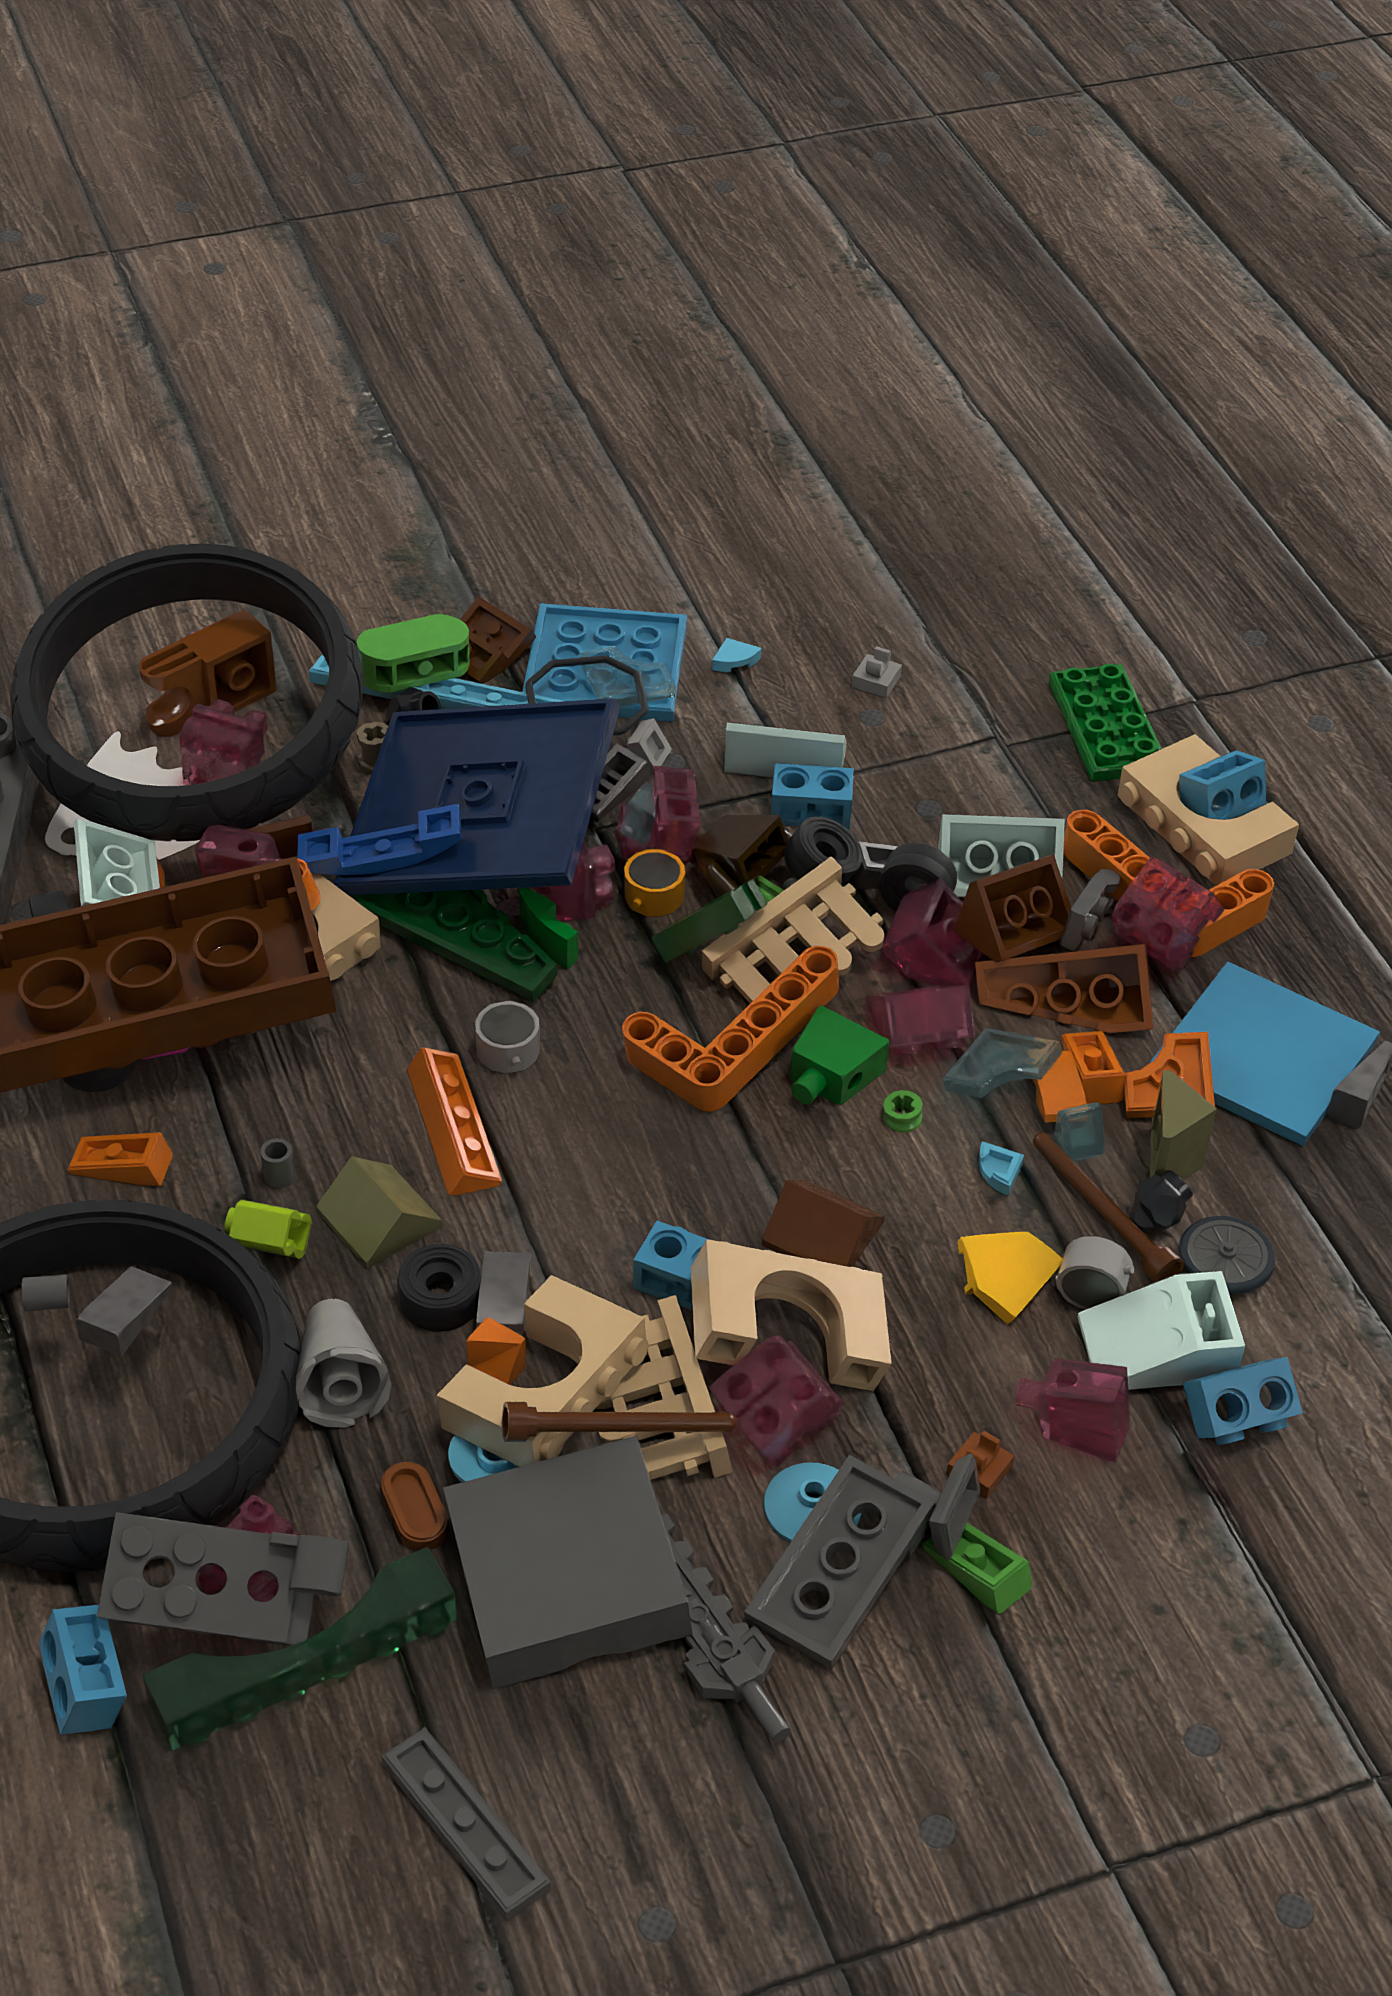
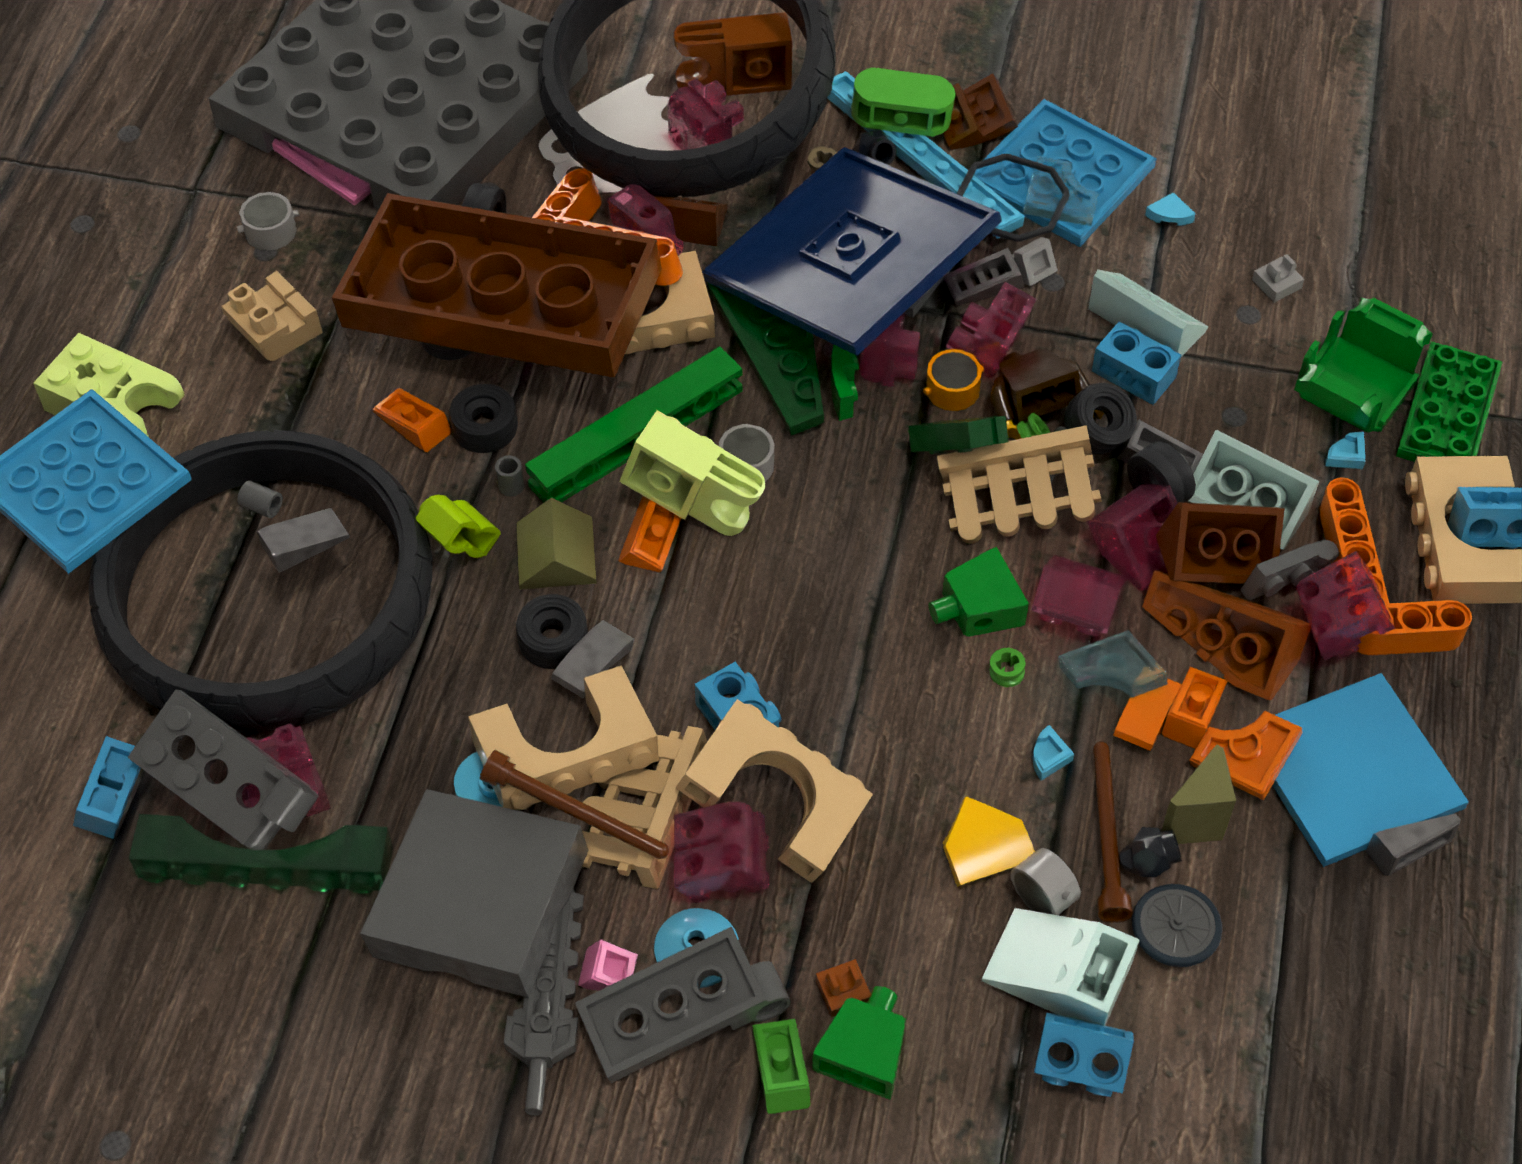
camera: 35 degrees right, 10 degrees up
(113, 863) = (543, 185): light aqua slope -> none
(207, 1143) = (487, 436): none -> black tyre
(340, 1368) = (433, 654): light grey cone -> none
(372, 1062) = (609, 440): none -> green piece
(381, 850) = (745, 258): blue slope -> none
(414, 1506) = (417, 773): dark orange tile -> none
(466, 1824) = (279, 1045): dark grey tile -> none
(482, 1069) = (692, 476): none -> yellowish green brick
(497, 1351) = (552, 704): orange slope -> none
(640, 815) = (969, 317): clear light blue slope -> none
(740, 1567) = (605, 965): none -> bright pink slope
(752, 1036) = (921, 539): orange beam -> none
(820, 1225) = (869, 729): reddish brown slope -> none
(955, 1506) = (788, 1011): dark grey tile -> none
(1012, 712) = (1367, 368): none -> green piece
(1046, 1500) = (863, 1044): none -> green torso
(1052, 794) = (1348, 452): none -> medium azure tile
(1080, 1131) = (1134, 759): clear light blue slope -> none
(1081, 1406) = (948, 987): clear pink torso -> none

